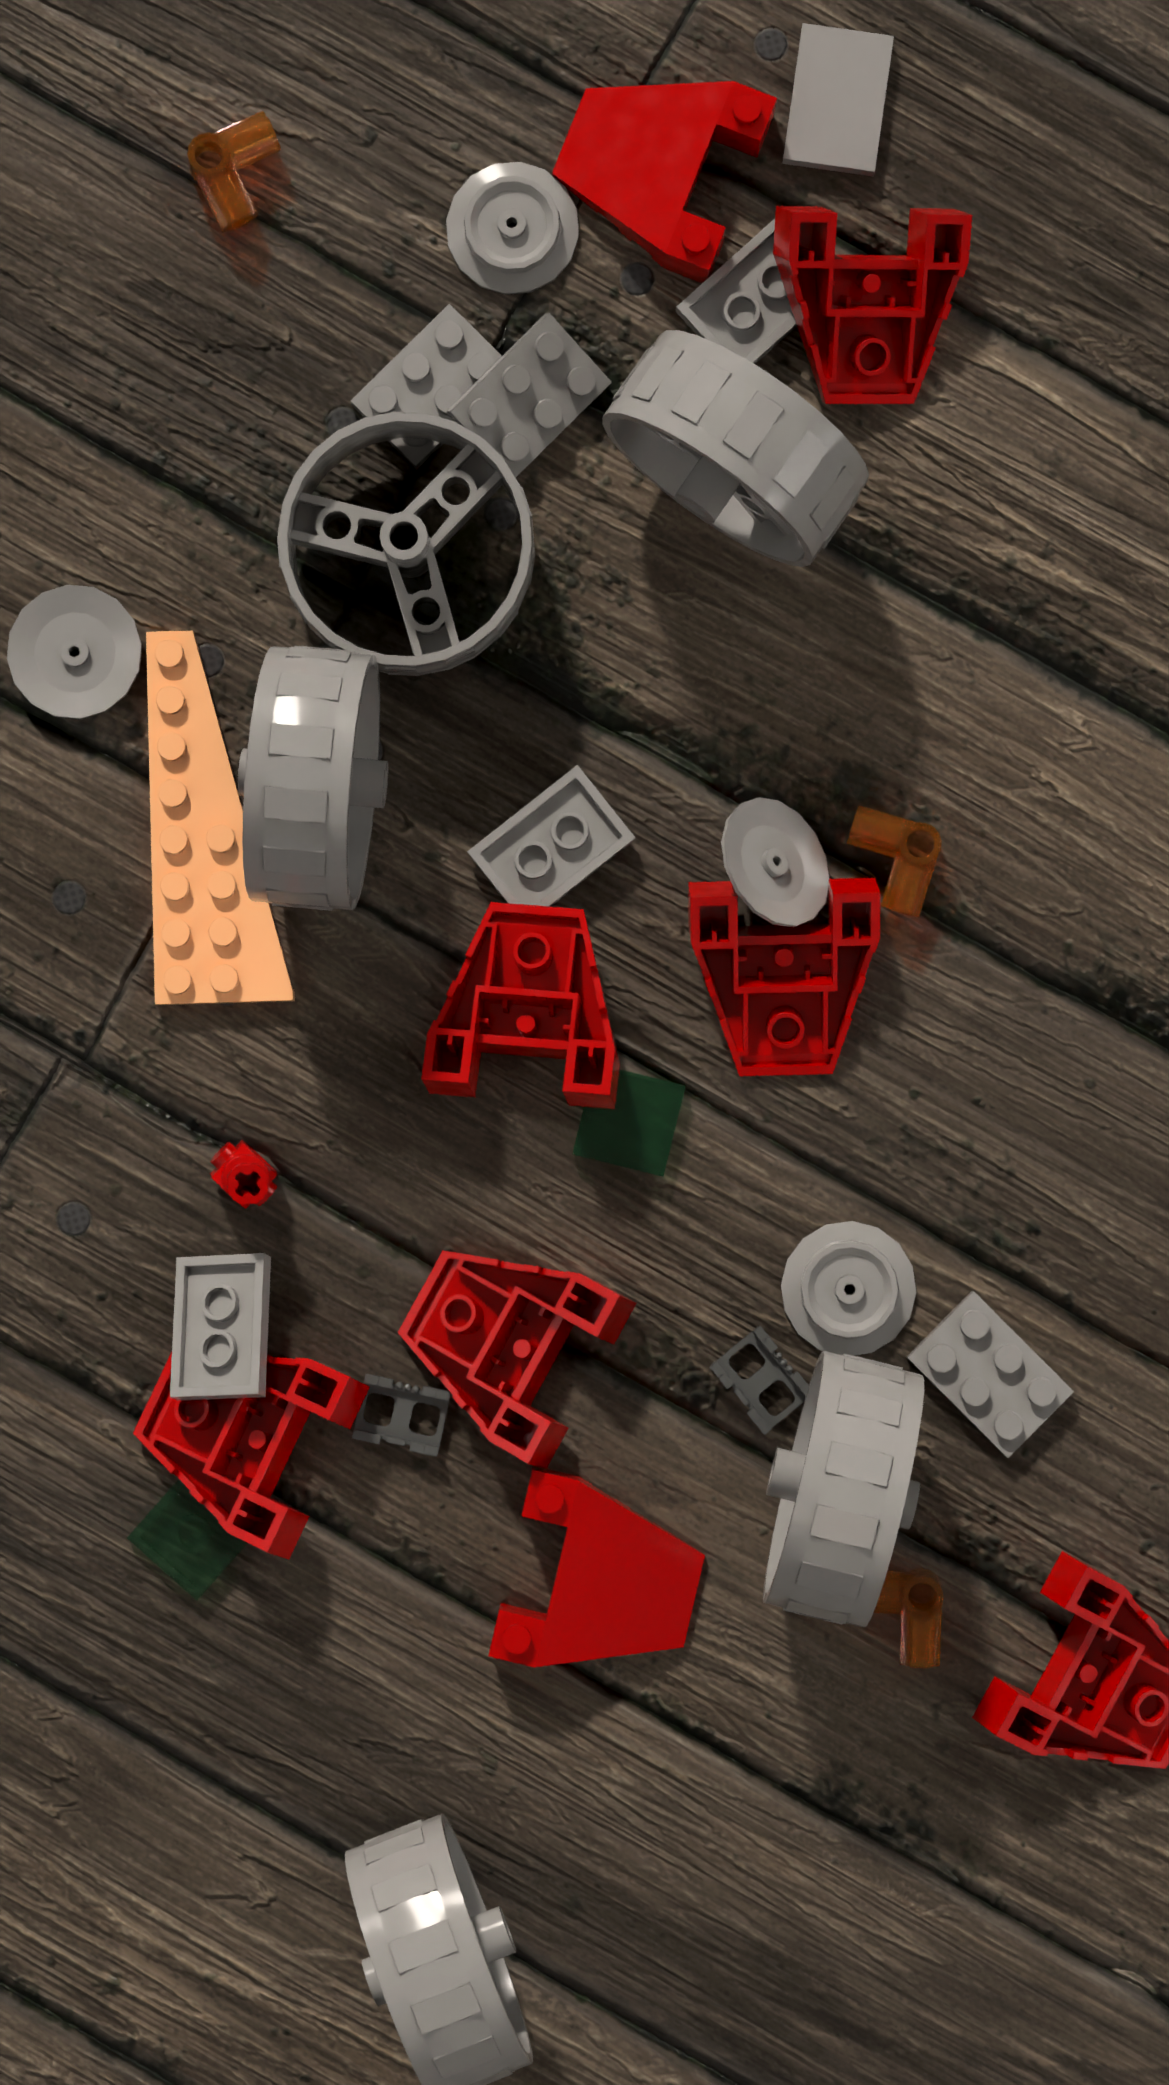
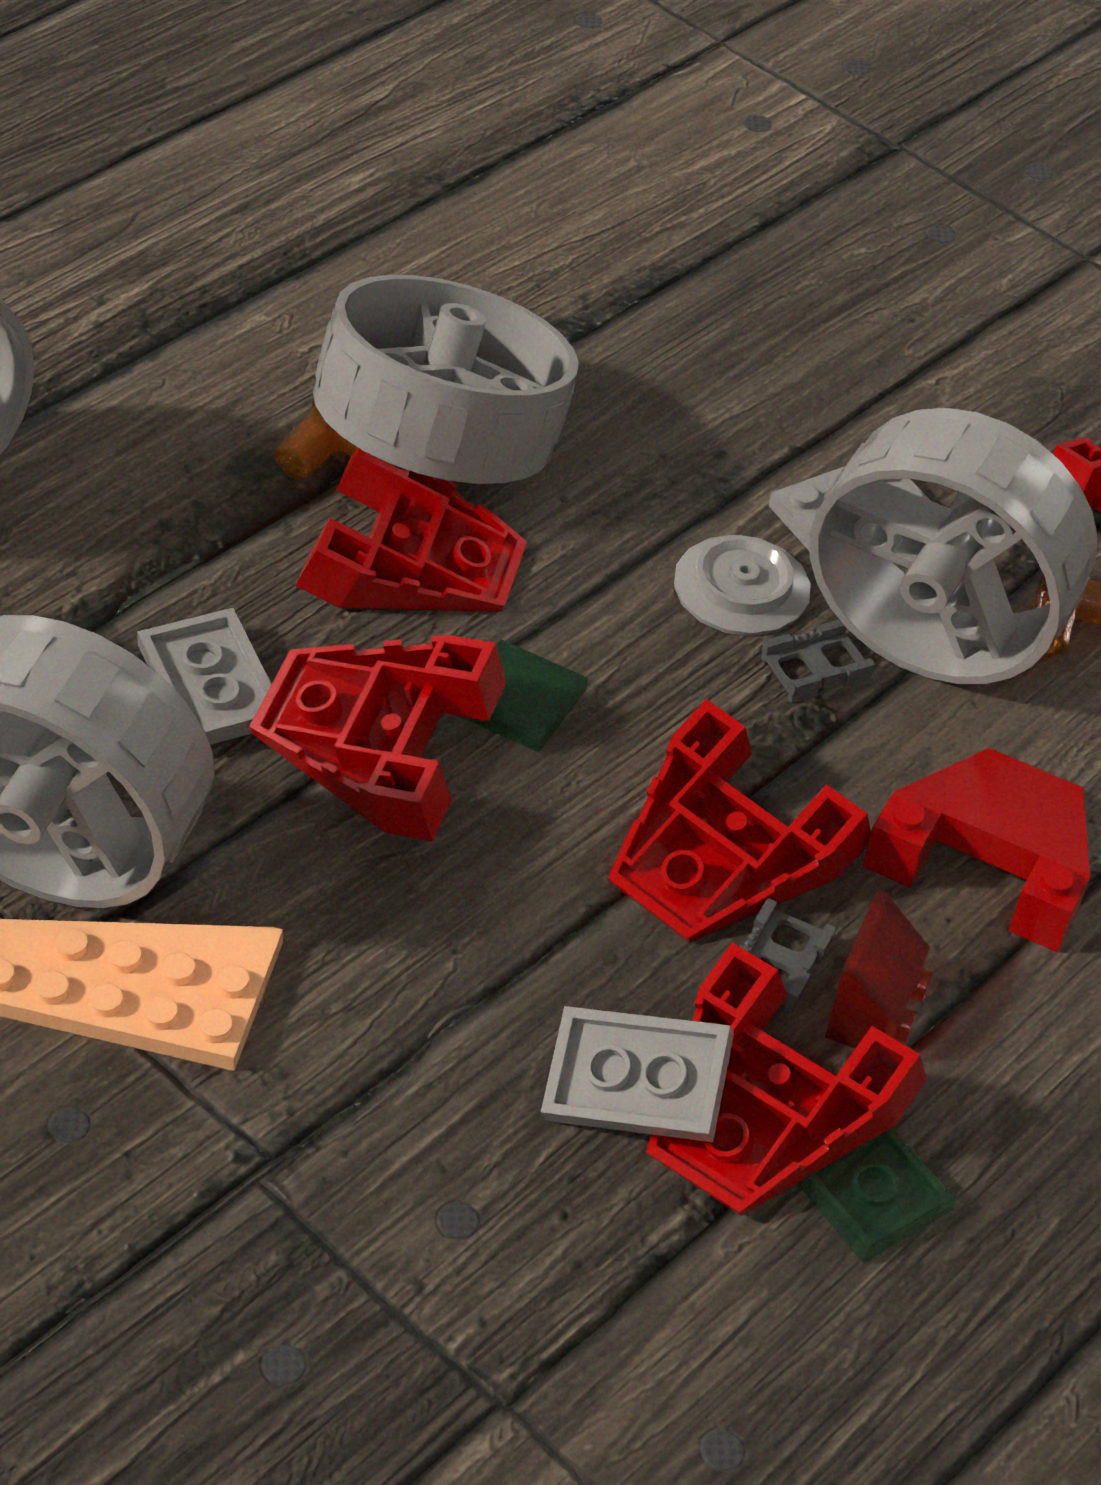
camera: 80 degrees left, 40 degrees down
(243, 1174) = (467, 1012): red connector -> none
(376, 1505) = (880, 977): none -> clear red slope
(775, 862) = (305, 512): light grey piece -> none
(1058, 915) = (444, 379): none -> light grey wheel

